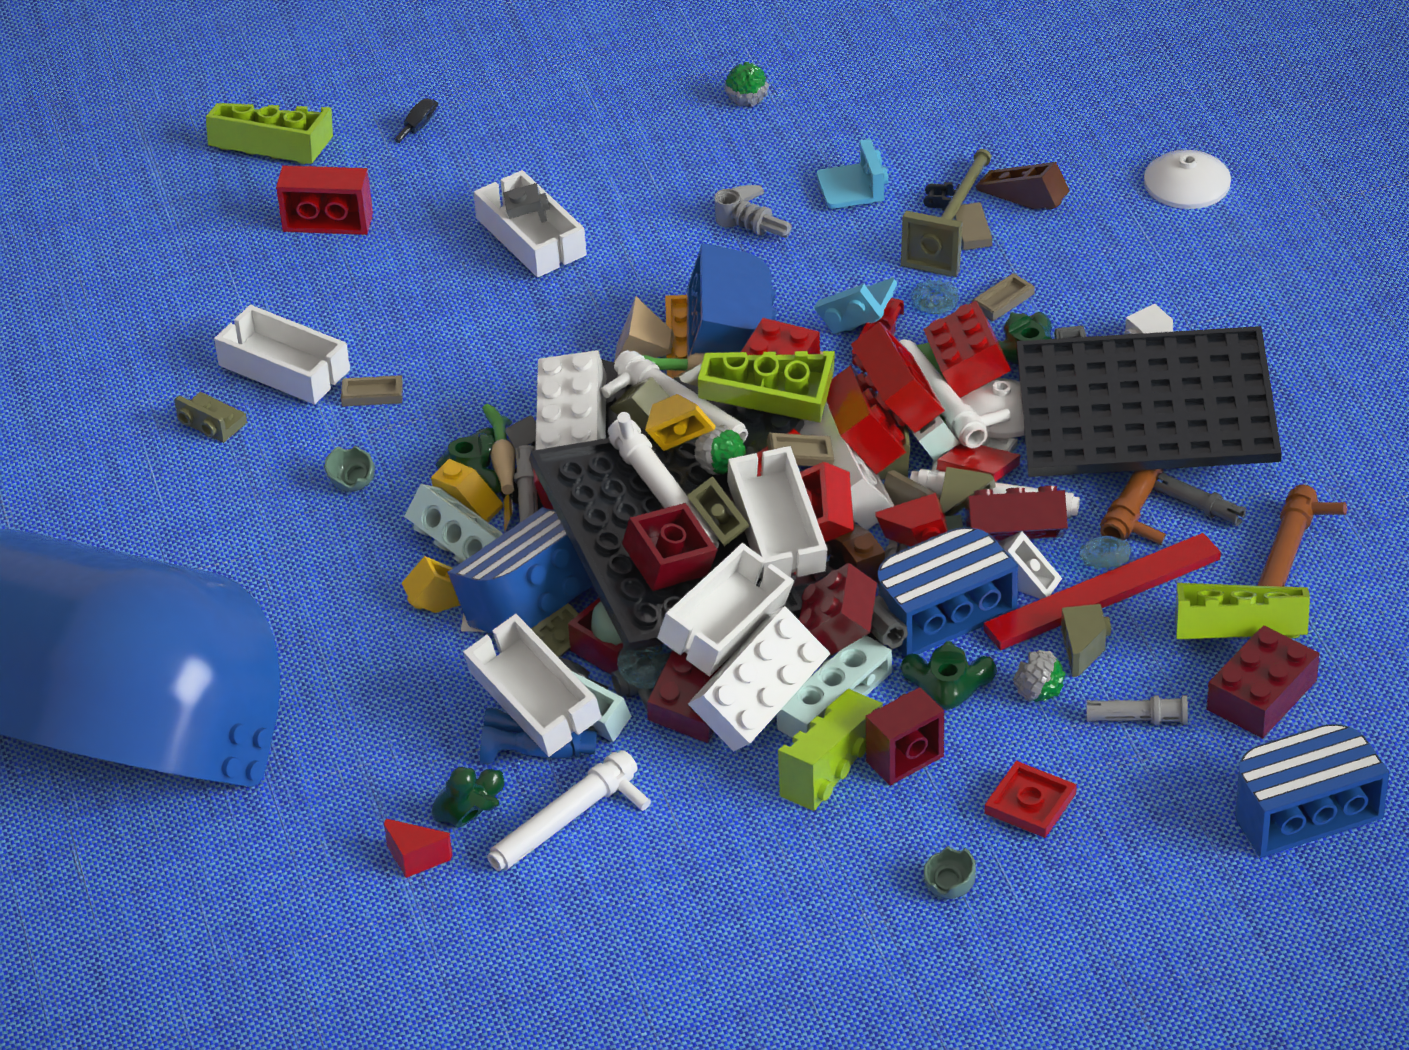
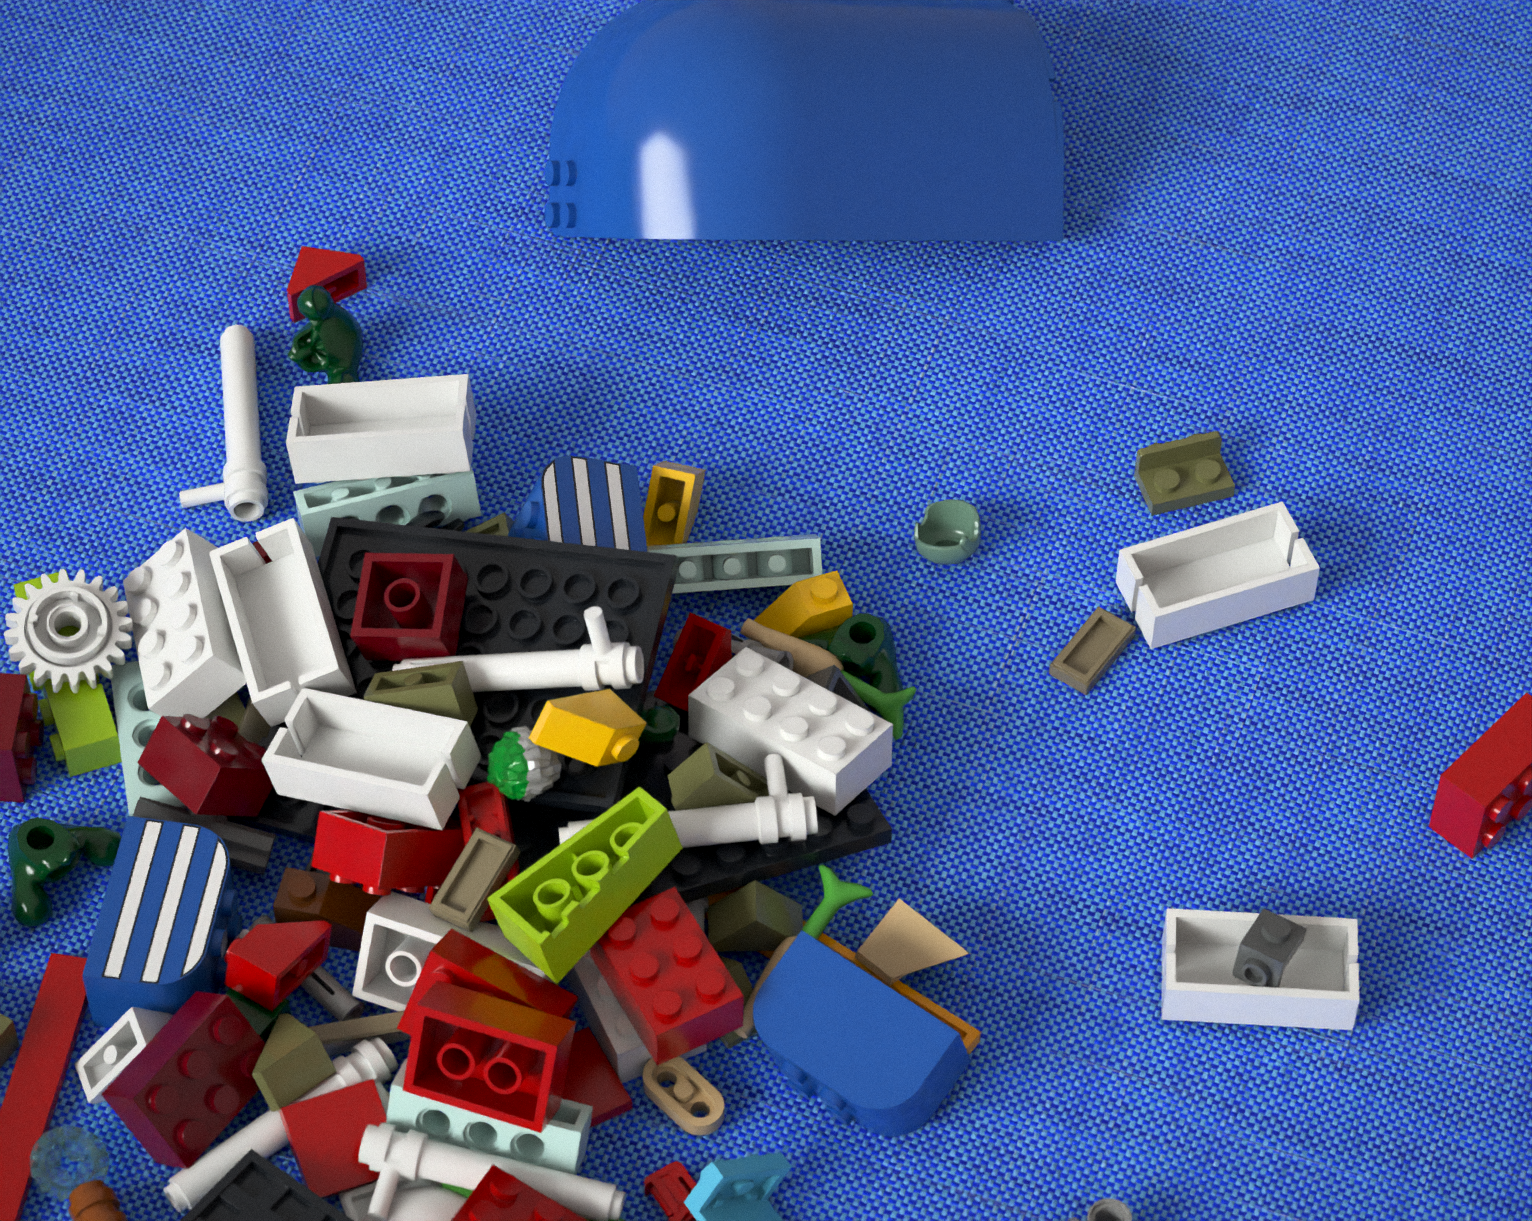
camera: 125 degrees right, 10 degrees up
(819, 715) = (74, 657): none -> white gear

